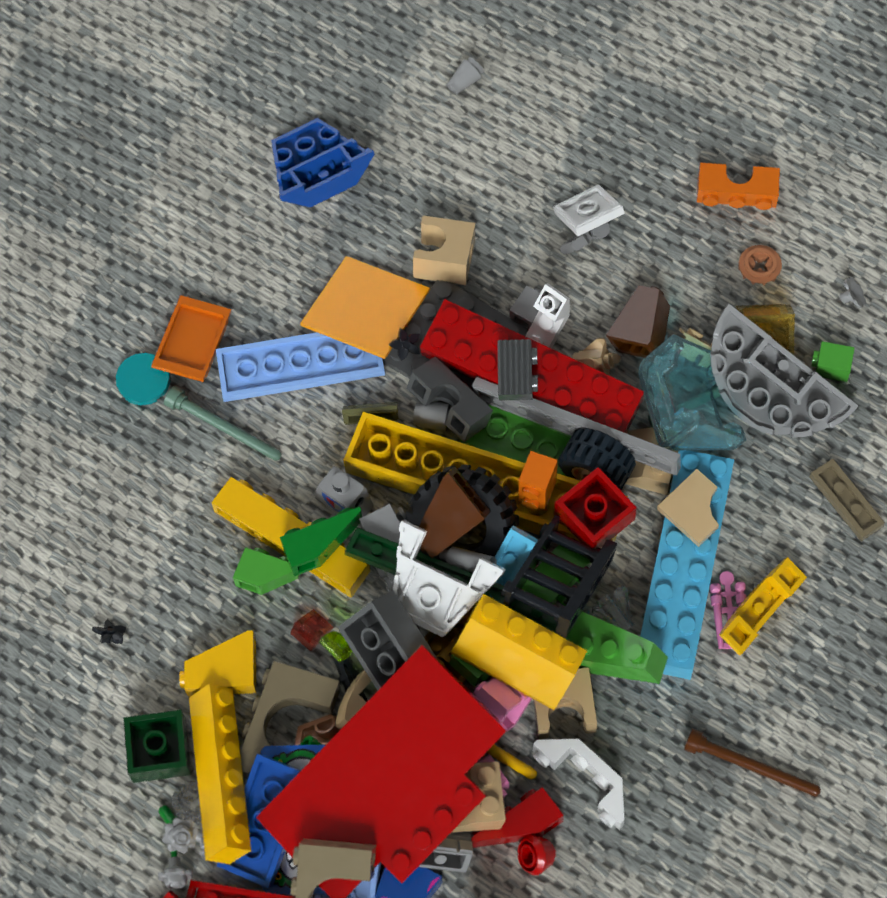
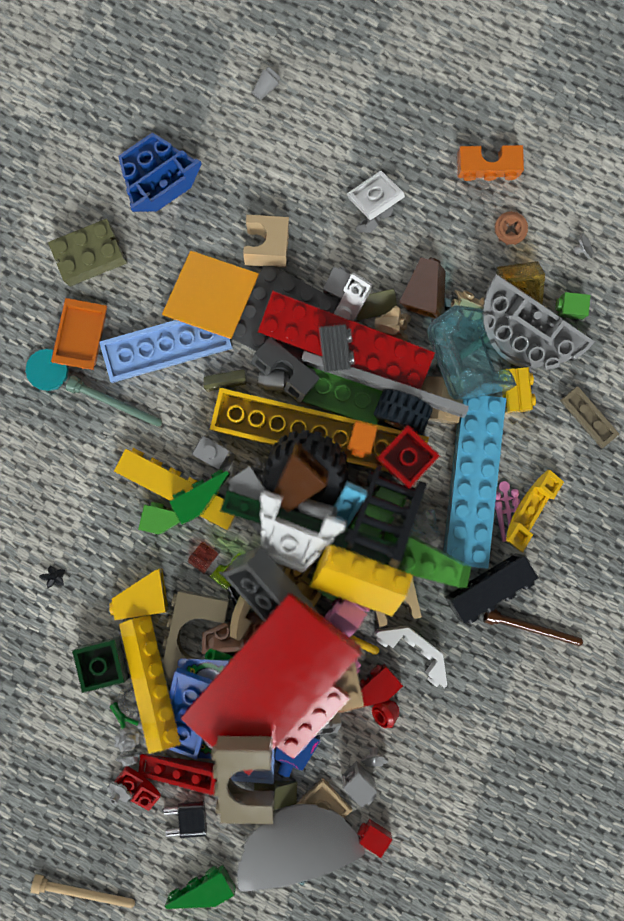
camera: 10 degrees left, 20 degrees up
(217, 244) = (87, 252): none -> olive piece
(405, 344) = (245, 325): black plant -> none
(577, 336) = (378, 304): none -> olive slope
(690, 507) = (477, 443): tan tile -> none
(695, 697) = (491, 588): none -> black brick
(752, 459) = (520, 397): none -> yellow brick

